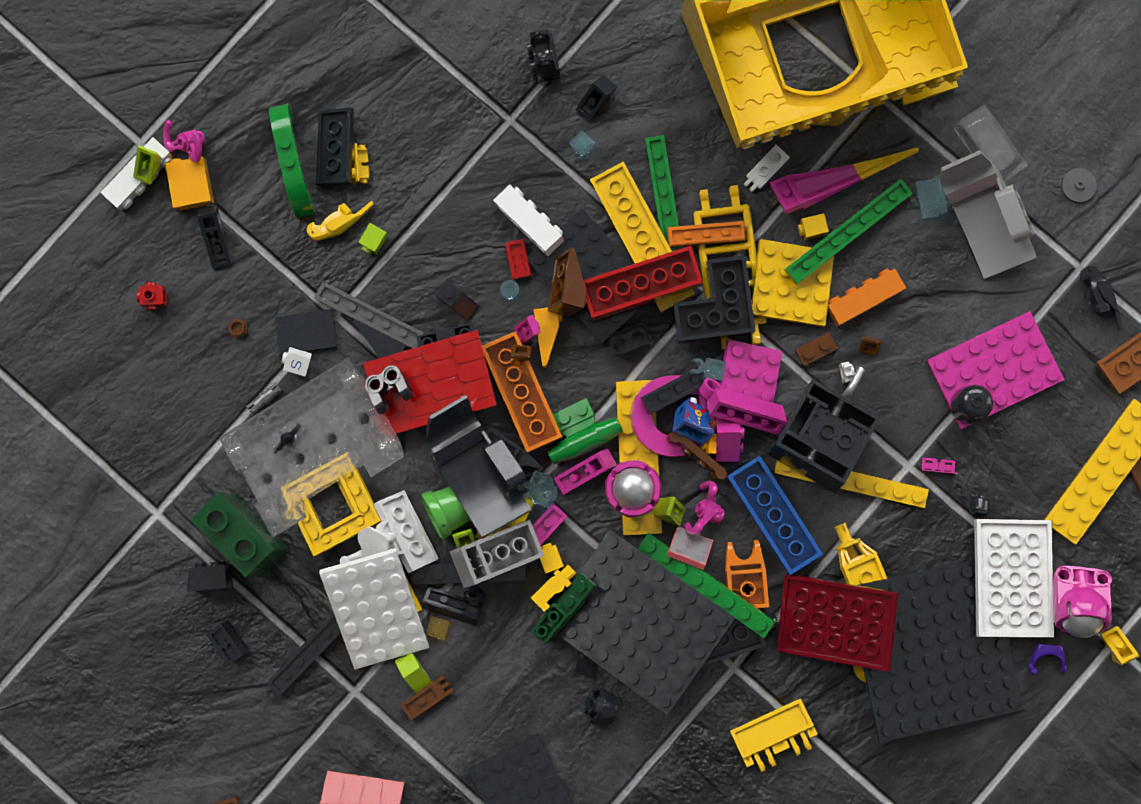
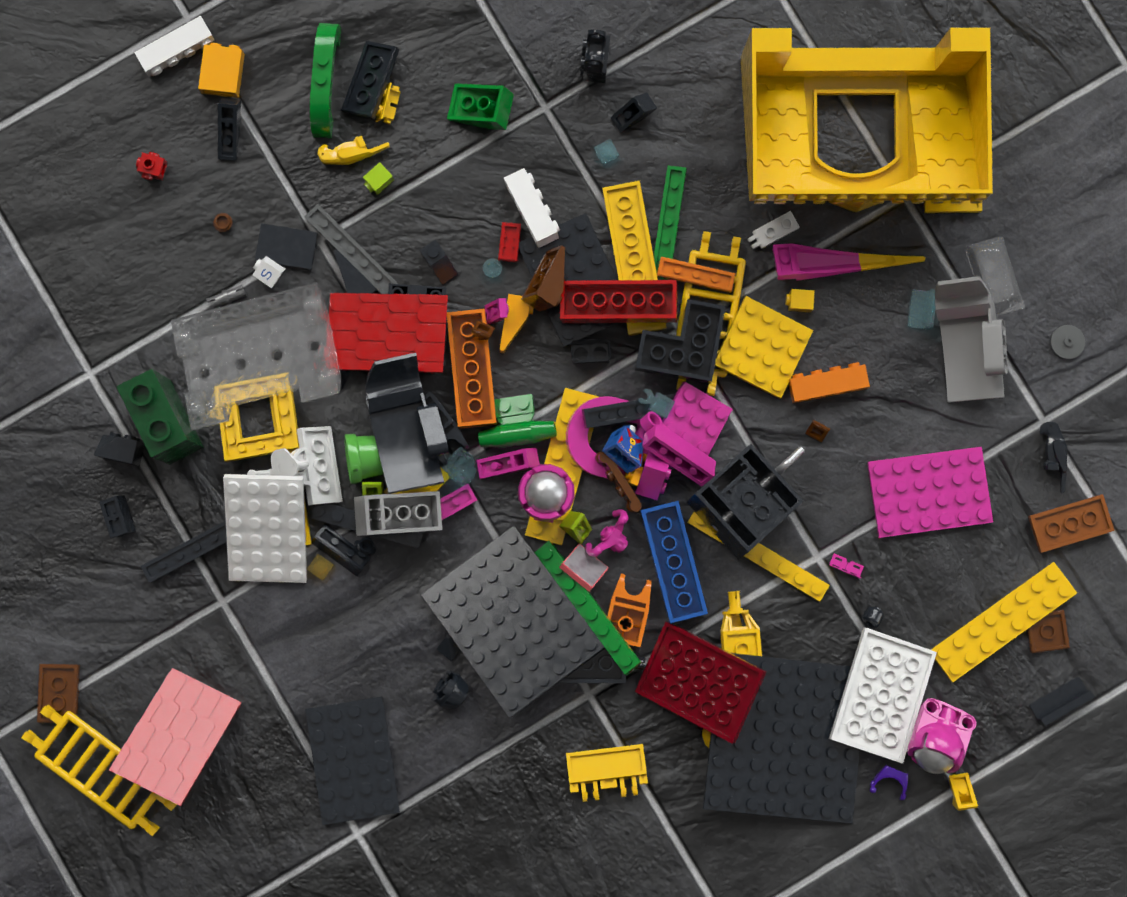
camera: 10 degrees right, 0 degrees up
(146, 164) = (185, 39): lime slope -> none
(186, 141) = (232, 30): dark pink piece -> none
(287, 438) = (235, 341): black piece -> none
(386, 384) = (334, 327): piece -> none
(413, 672) = (283, 601): lime slope -> none
(426, 698) = (287, 629): reddish brown hinge -> none
(448, 138) = (481, 105): none -> green slope
(551, 558) = (448, 536): yellow brick -> none
(552, 586) = (441, 562): yellow hips -> none
(564, 609) = (445, 586): dark green slope -> none
(816, 349) = (765, 417): reddish brown plate -> none
(846, 372) = (787, 448): white plate -> none
(848, 231) = (832, 315): green plate -> none
(971, 404) = (896, 516): black cylinder -> none

